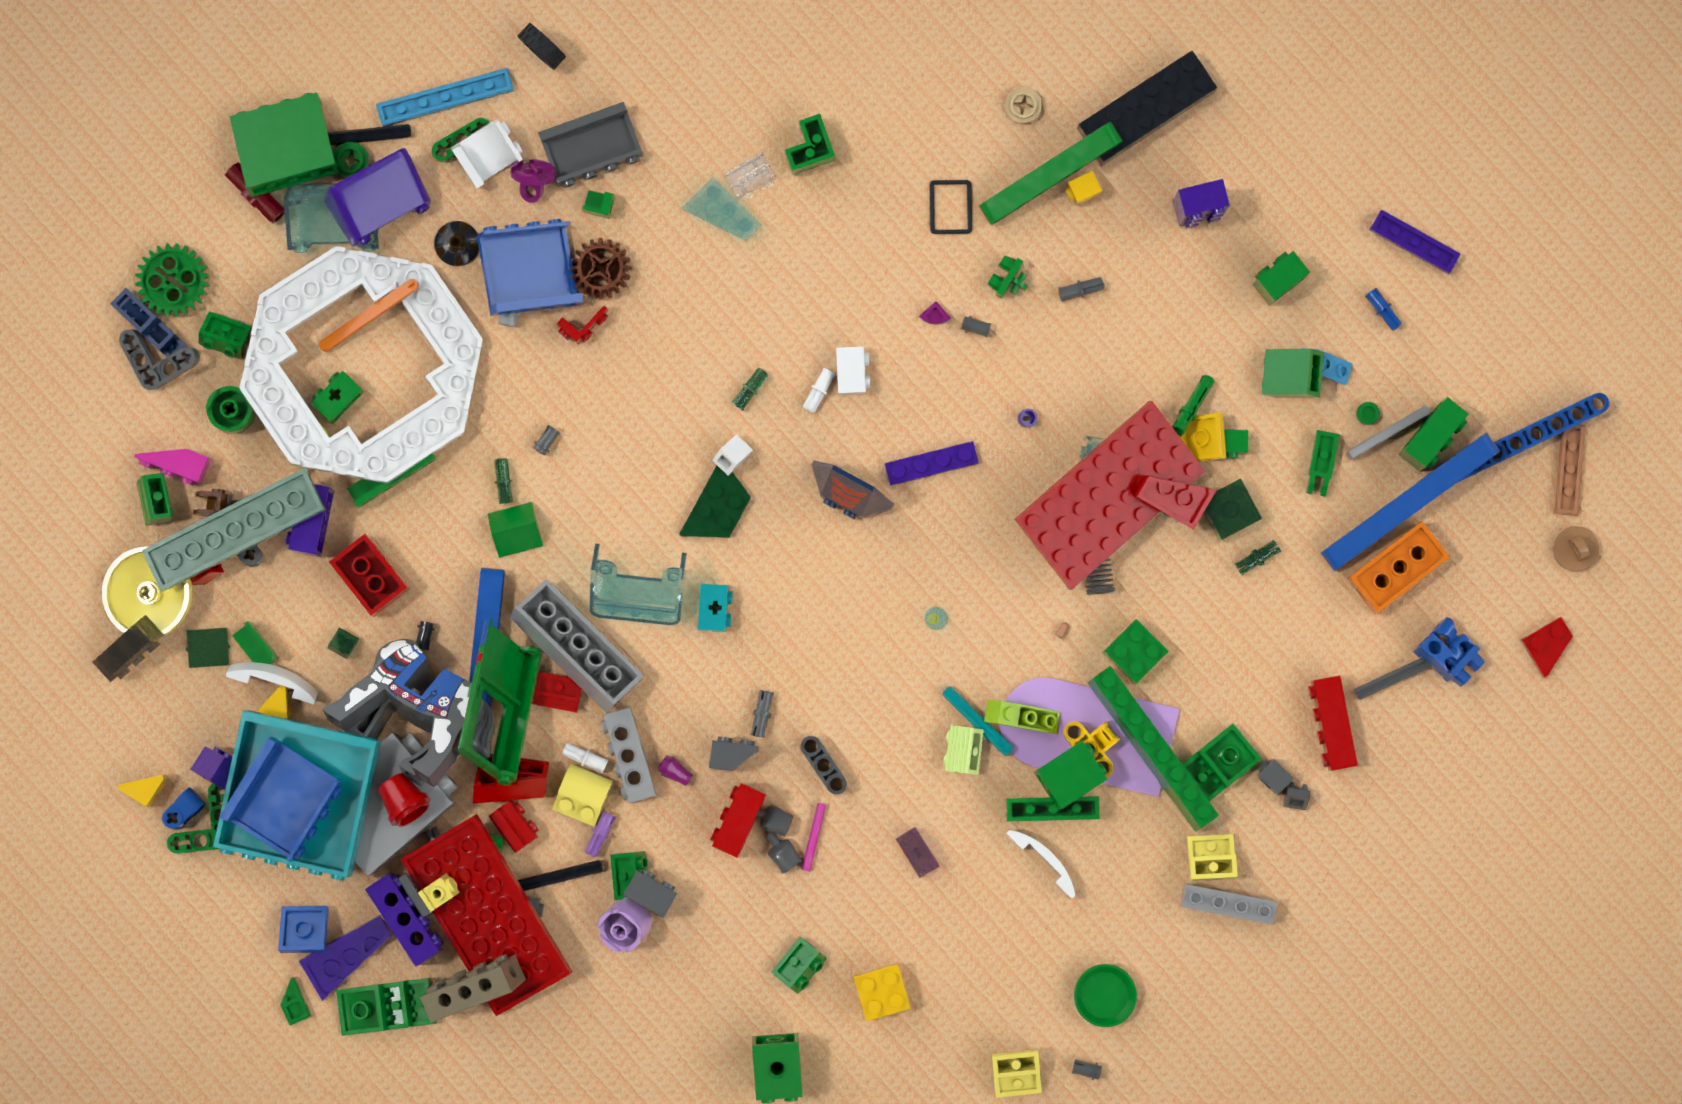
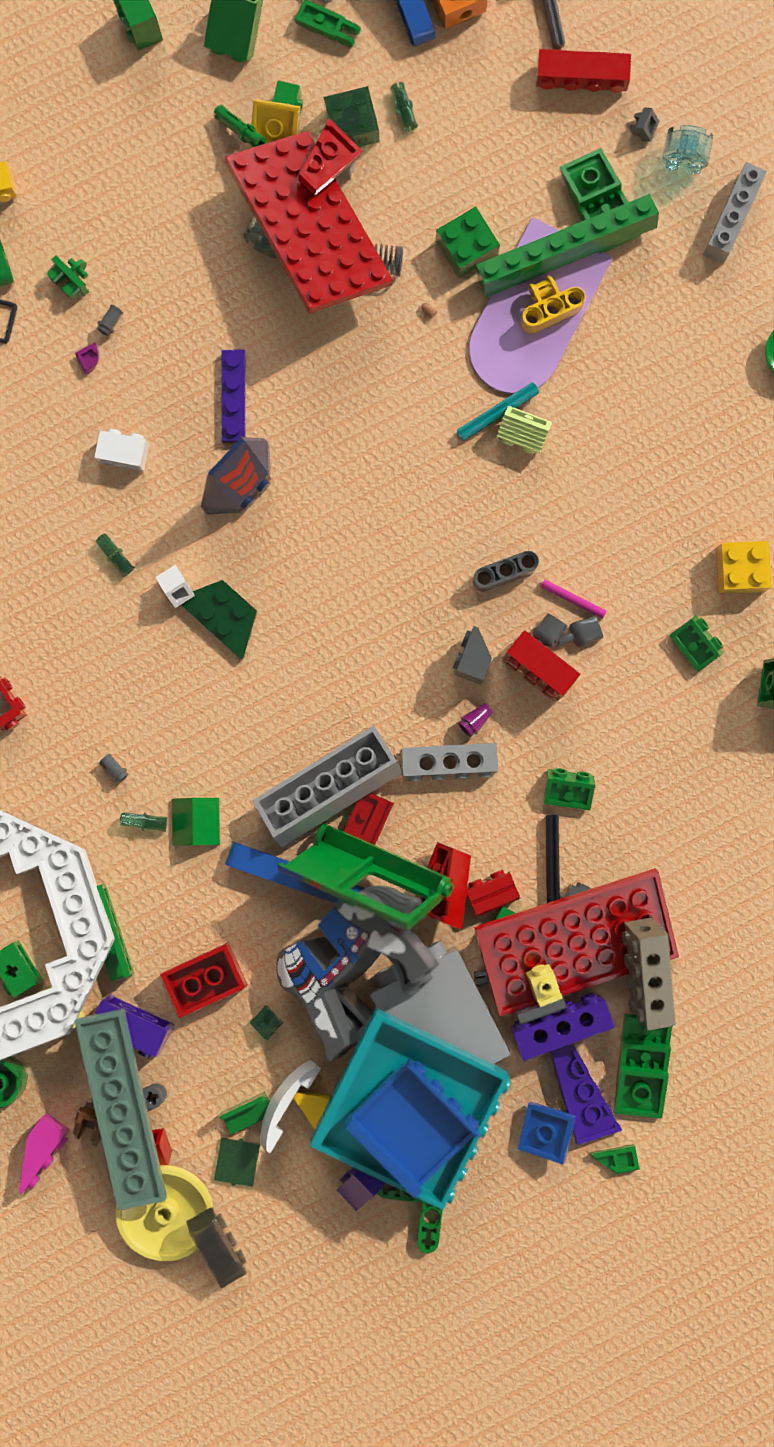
camera: 70 degrees left, 0 degrees up
(144, 790) = (367, 1263): yellow slope -> none
(154, 499) = (70, 1182): green brick -> none
(185, 806) = (393, 1224): blue piece -> none
(403, 800) = (443, 999): red piece -> none
(424, 635) = (278, 938): black pin -> none
(582, 795) = (478, 817): light yellow brick -> none
(584, 757) = (441, 805): white axle -> none
(600, 833) = (521, 809): medium lavender axle -> none
(624, 925) = (619, 805): lavender brick -> none
(635, 596) = (293, 715): clear light blue windscreen -> none
(650, 893) = (595, 771): dark grey brick -> none
(708, 595) = (332, 651): teal brick -> none
(762, 714) = (439, 620): dark grey pin -> none
(819, 390) = (133, 487): white axle -> none
(917, 852) = (613, 500): clear purple hinge -> none
(936, 618) = (387, 428): clear light blue tile -> none
(1021, 716) = (503, 367): lime slope -> none
(1025, 413) = (208, 288): hinge -> none
(1044, 809) = (602, 357): green brick -> none
(1064, 880) = (673, 365): white slope -> none
(1071, 775) = (577, 325): green panel -> none
(1081, 289) = (99, 211): dark grey axle -> none
(1201, 203) = (43, 66): dark purple brick -> none
(1211, 857) = (686, 217): light yellow brick -> none
(1274, 776) = (620, 140): dark grey brick -> none
(1278, 843) = (687, 149): none -> clear light blue brick

